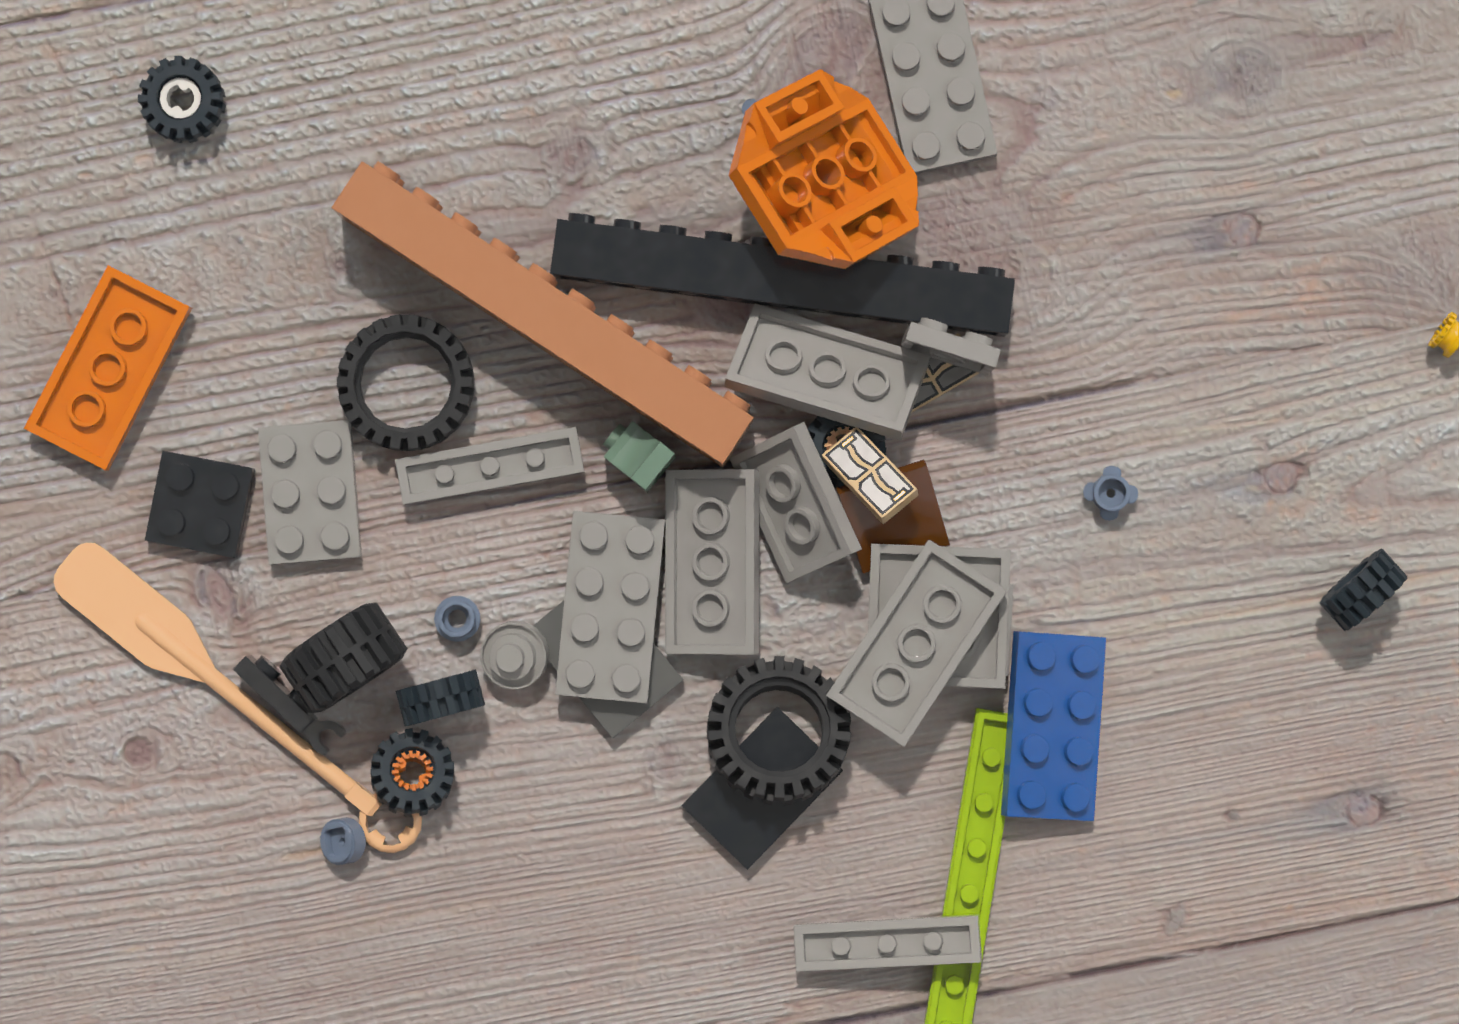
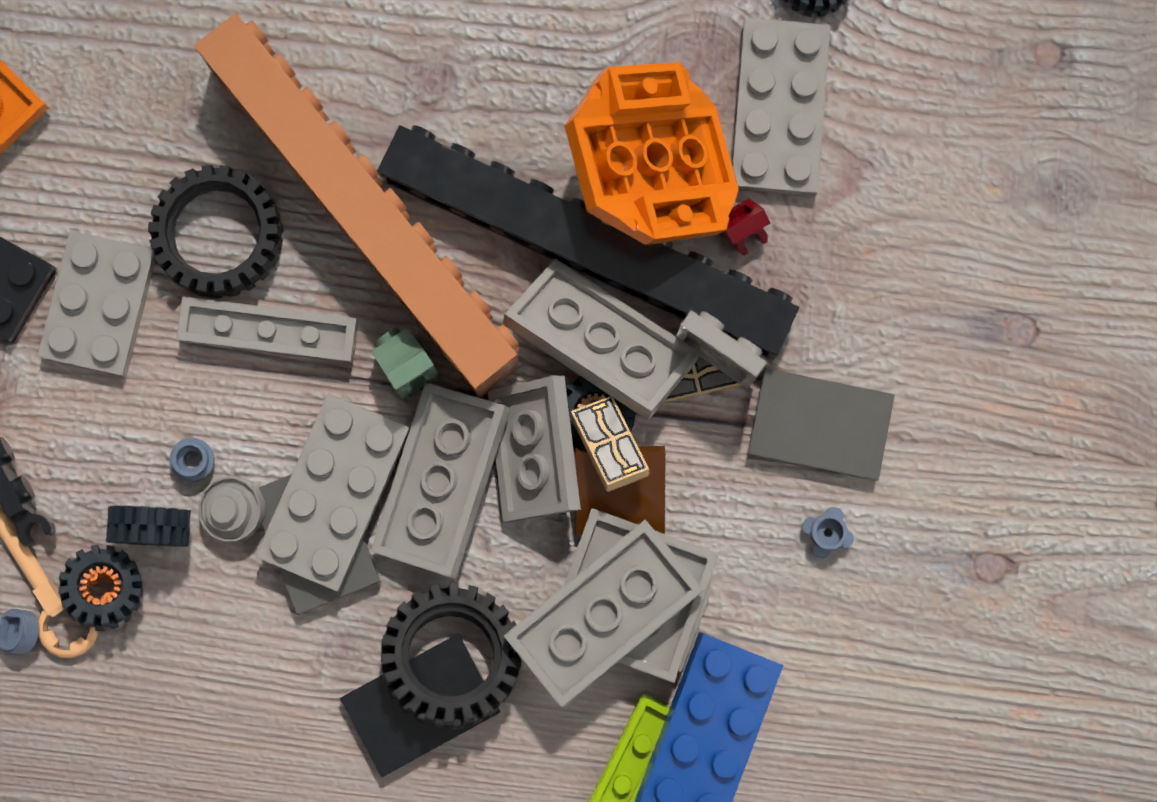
camera: 20 degrees right, 5 degrees down
(343, 657) = (69, 459): black tyre -> none
(934, 206) = (744, 221): none -> dark red tile
(1071, 387) = (821, 424): none -> dark grey tile
(1363, 589) = (1038, 696): black bush -> none

